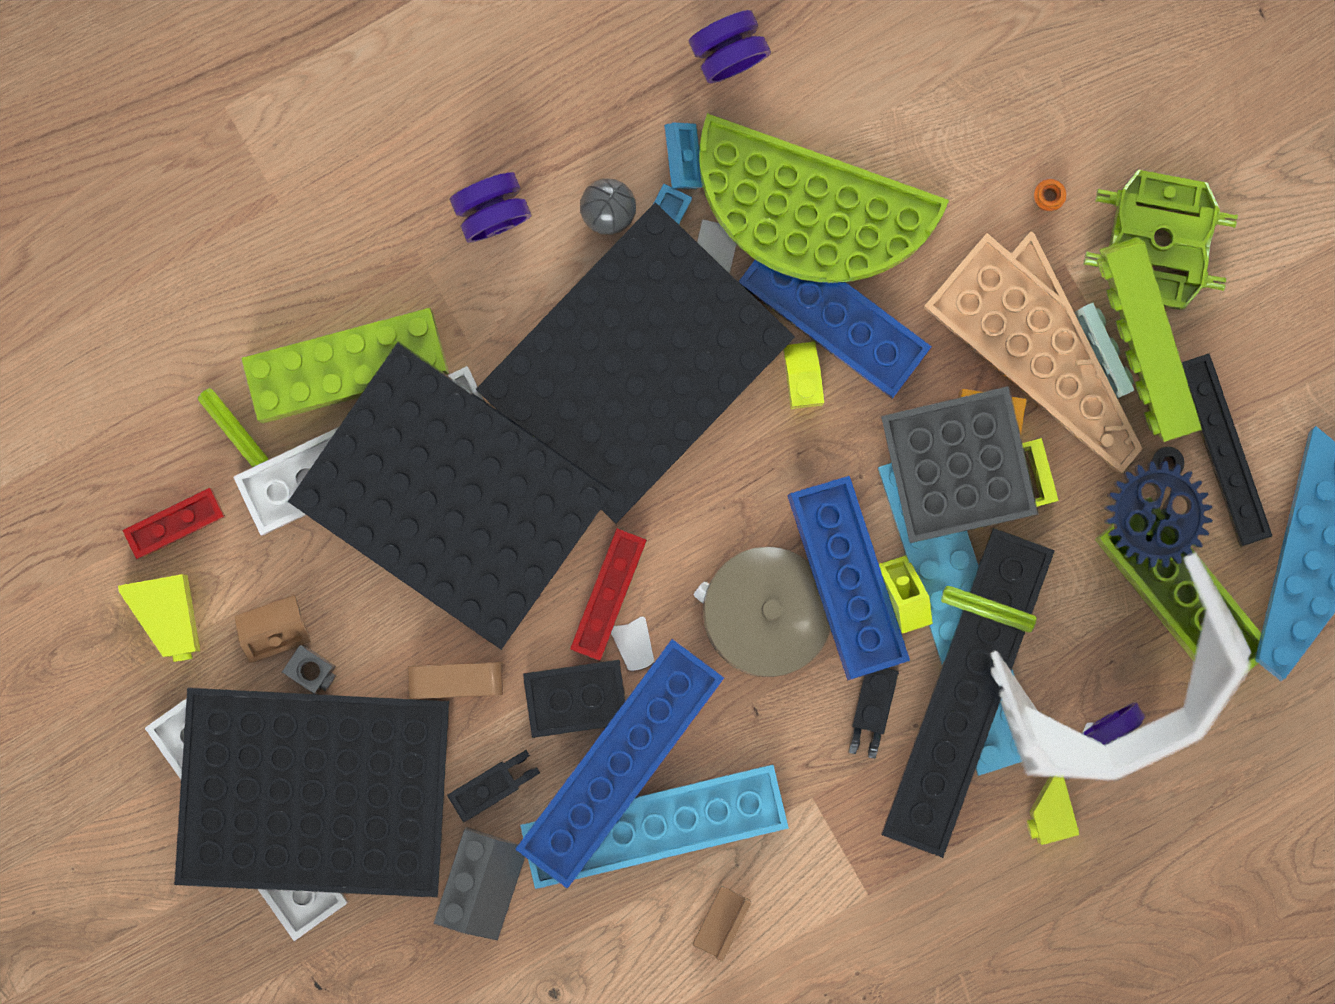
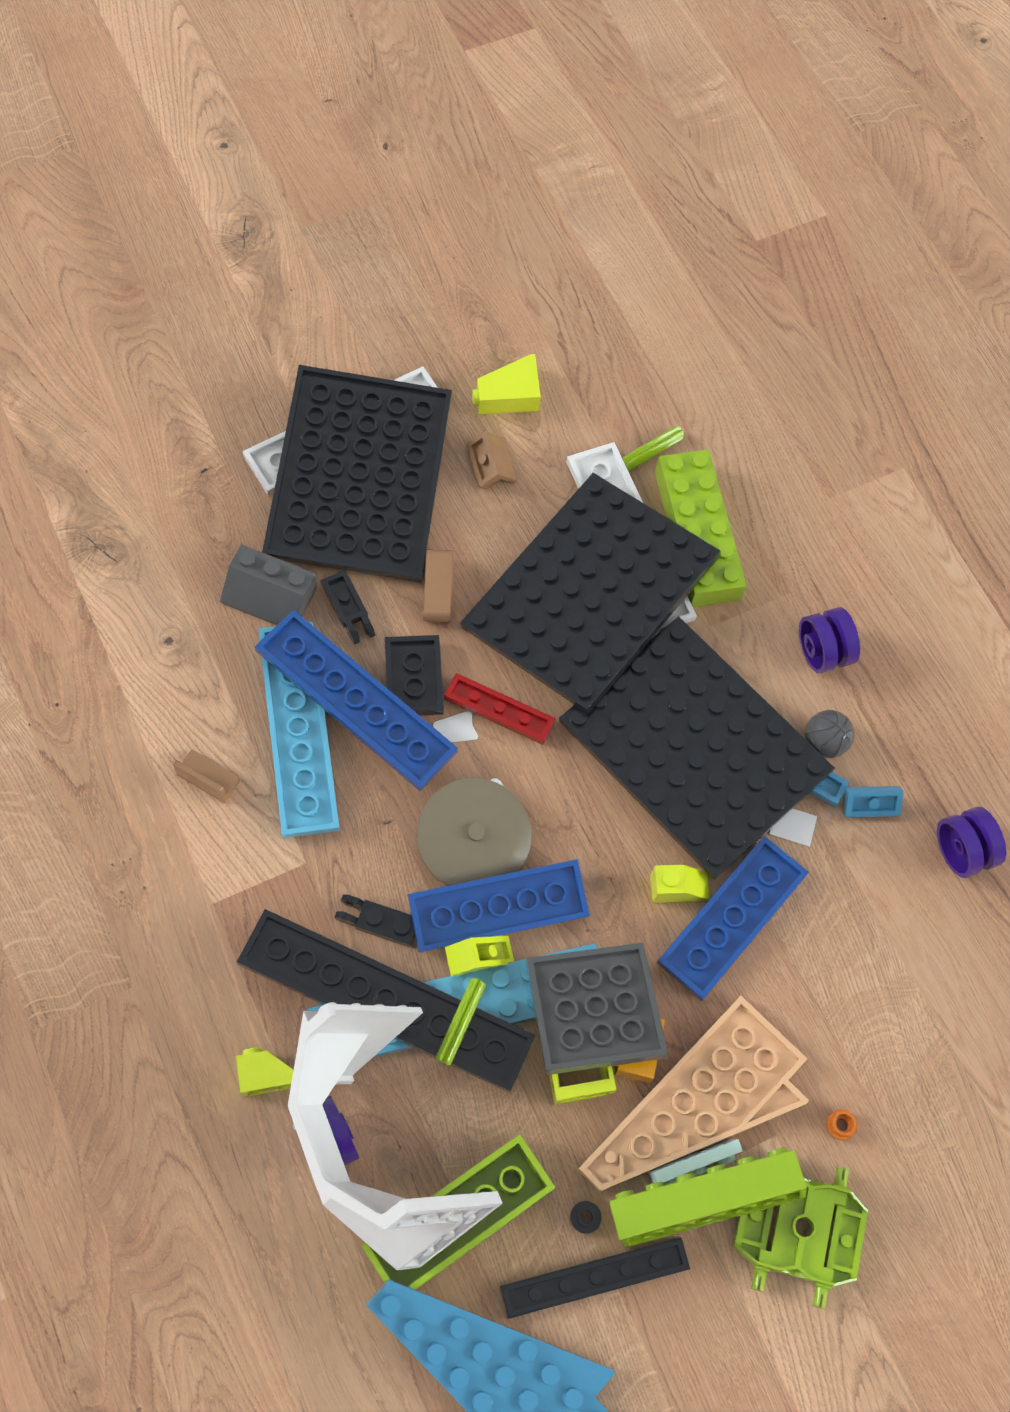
camera: 85 degrees right, 20 degrees down
(173, 523) = (579, 401): red plate -> none
(295, 669) = (457, 472): dark grey brick -> none
(808, 209) = (826, 905): lime plate -> none
(1185, 526) = (551, 1162): dark blue gear -> none

